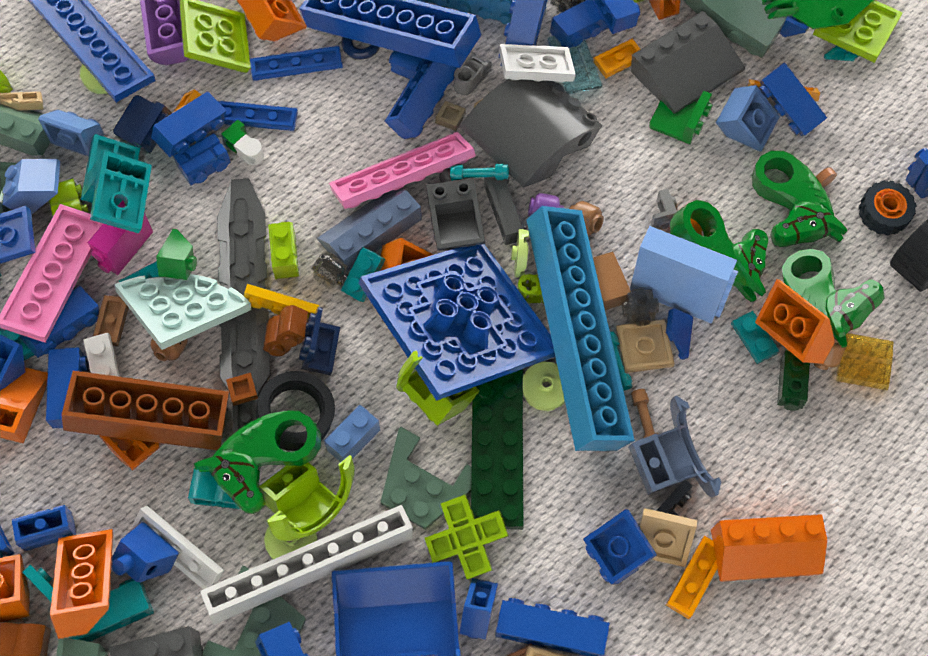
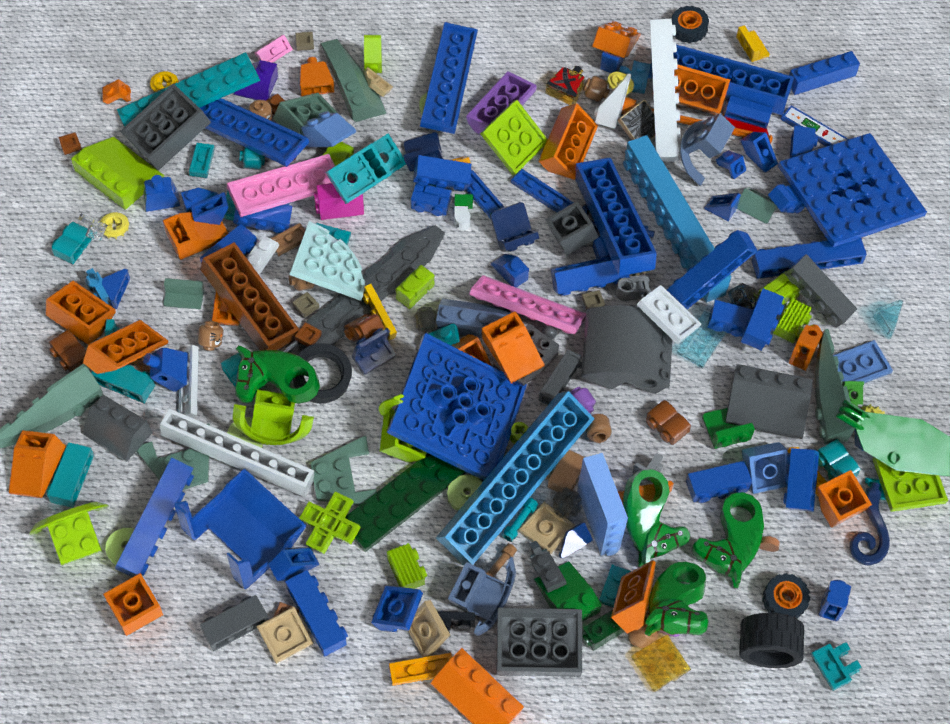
camera: 45 degrees right, 5 degrees down
(43, 527) = (140, 308): blue brick -> none
(68, 471) = (183, 293): none -> sand green panel
(70, 130) = (382, 119): medium blue slope -> none
(145, 483) = (210, 335): none -> medium nougat head
(176, 257) = (354, 236): green slope -> none
(200, 364) = (305, 304): none -> dark tan plate
(308, 116) = (513, 227): none -> dark blue bracket
(347, 153) = (511, 269): none -> blue slope
(352, 434) = (335, 414): medium blue brick -> none
(361, 68) = (572, 228): none -> dark grey brick
(443, 217) = (512, 347): none -> orange slope
(499, 171) = (575, 354): teal bar -> none
(520, 253) = (534, 409): yellowish green plate -> none
(578, 504) = (405, 567): none -> lime brick
(616, 59) = (728, 359): light orange plate -> none
(632, 157) = (668, 422): none -> dark orange brick
(690, 379) = (546, 568): none -> dark grey hinge
(729, 167) = (718, 482): none -> blue brick
(731, 383) = (573, 595): none -> green slope
(766, 447) = (539, 642): none -> dark grey slope
(800, 60) = (837, 460): none -> teal brick
(838, 86) = (842, 499): none -> orange slope
(856, 71) = (874, 495): none -> dark blue plant

